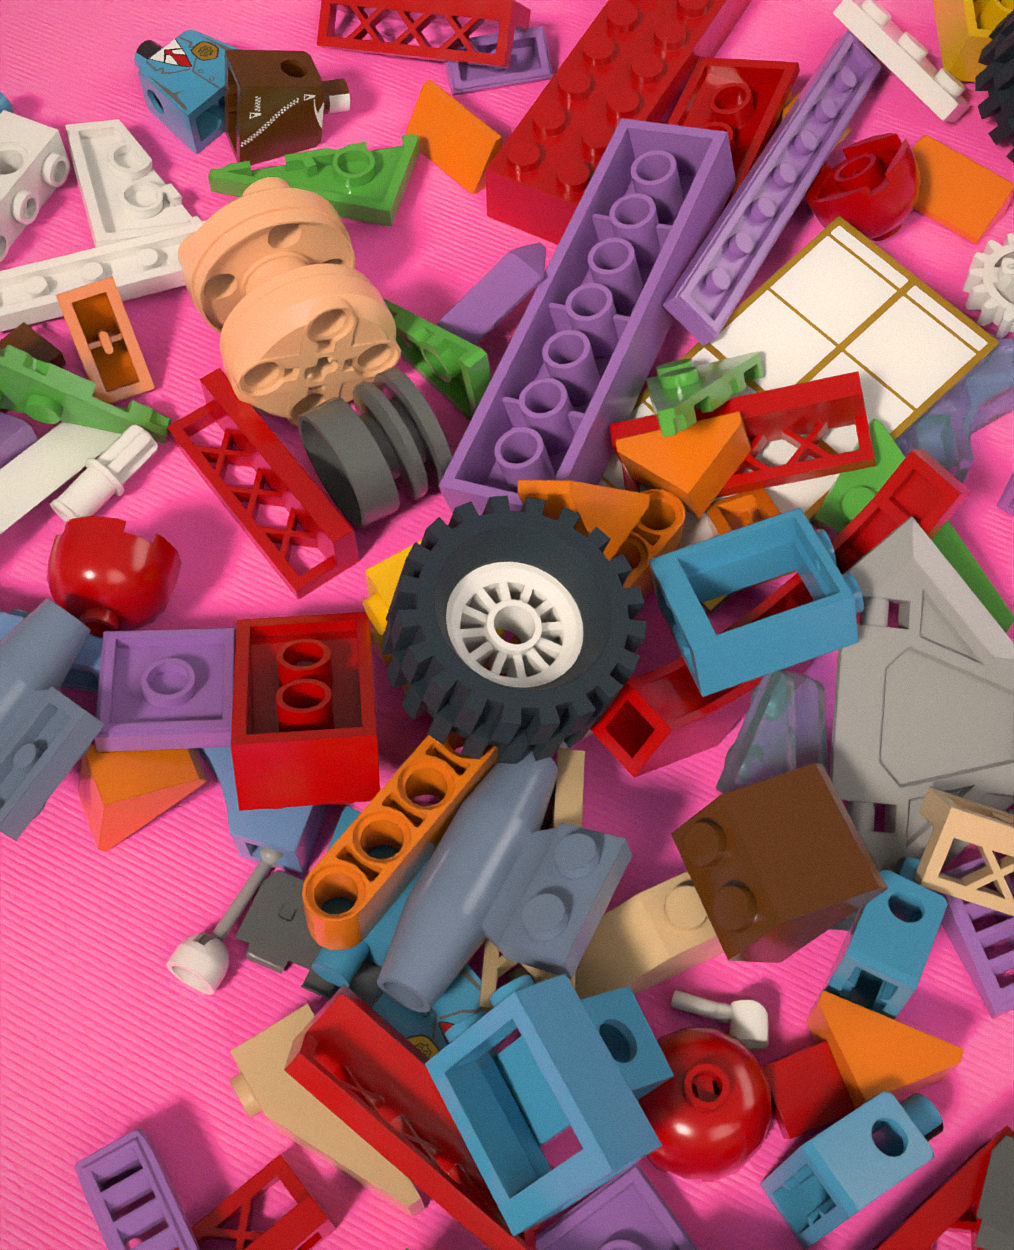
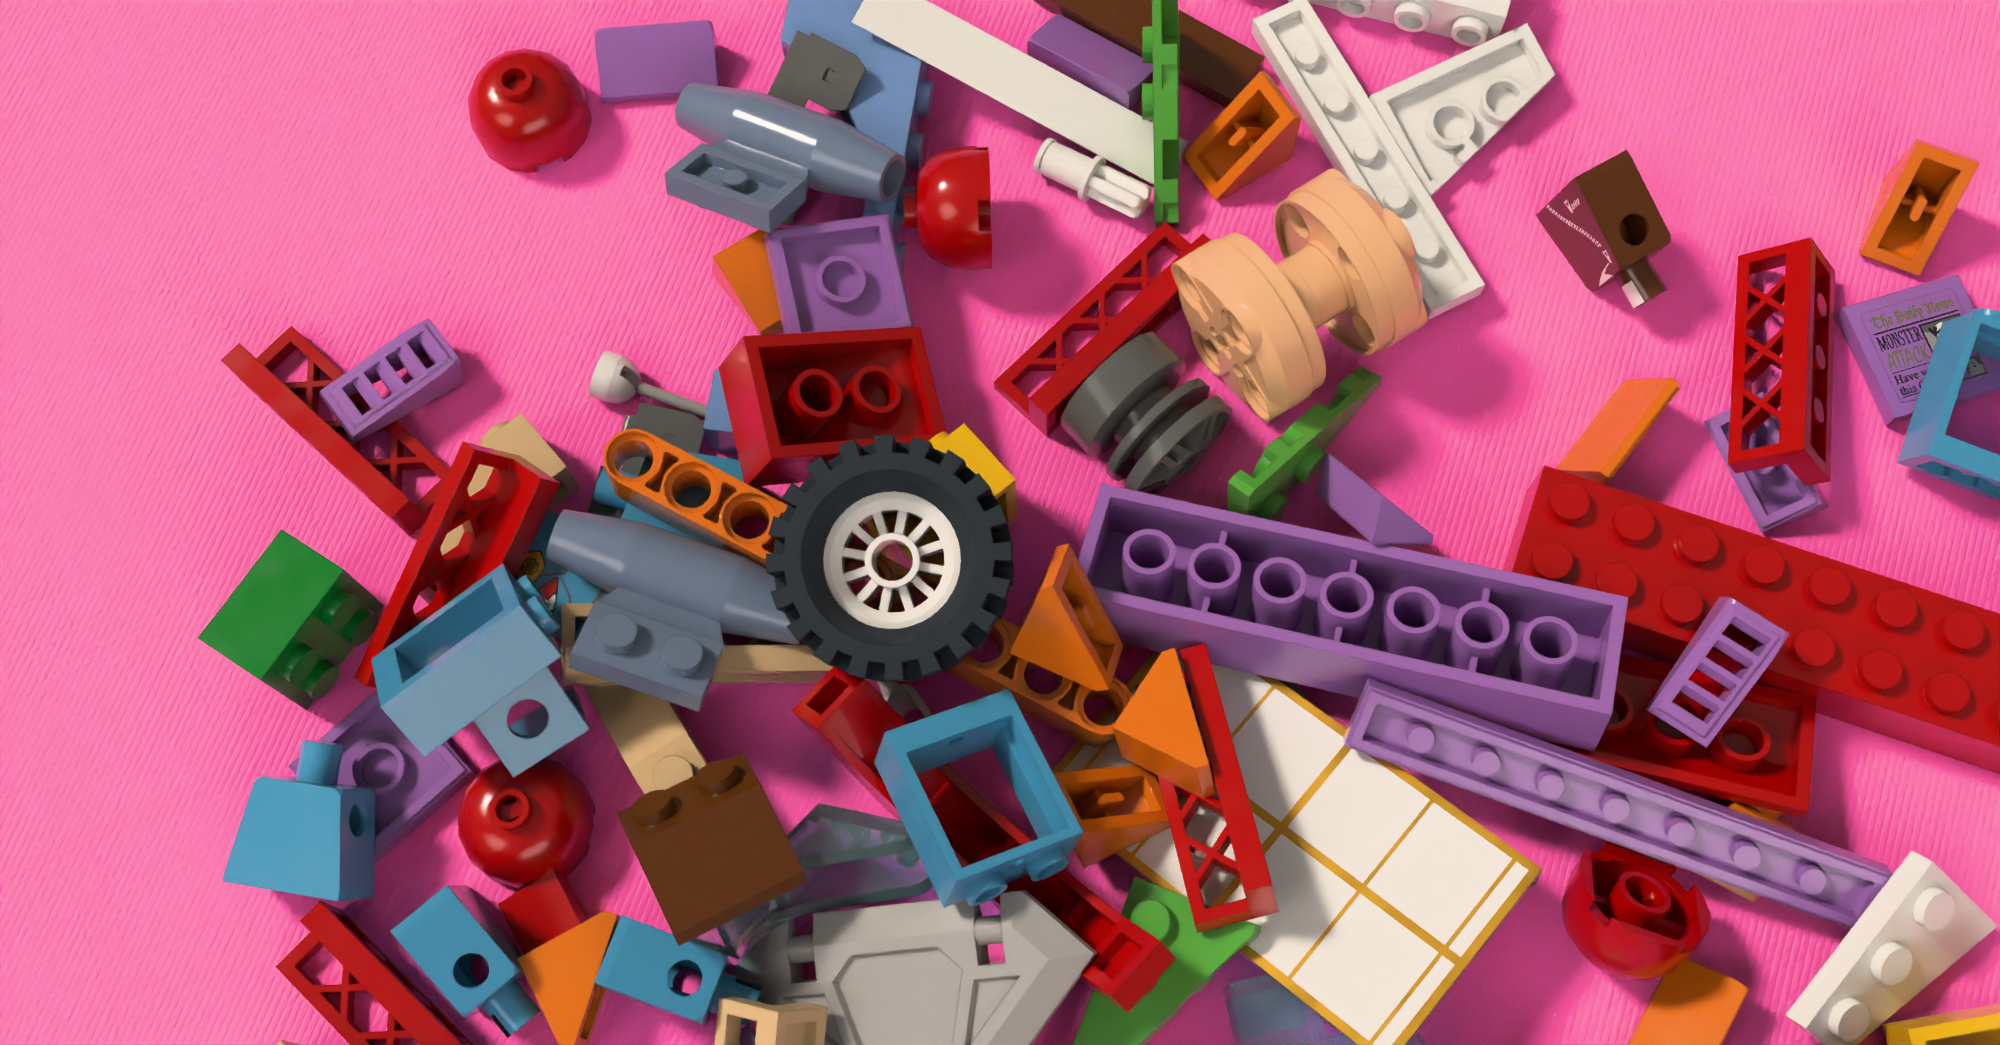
camera: 85 degrees right, 10 degrees up
(186, 86) = (1628, 118): dark azure torso -> none
(352, 178) = (1526, 331): bright green wing -> none
(670, 54) = (1752, 664): none -> medium lavender slope
(705, 386) = (1244, 716): bright green wing -> none
(746, 1017) = (605, 860): white hand -> none

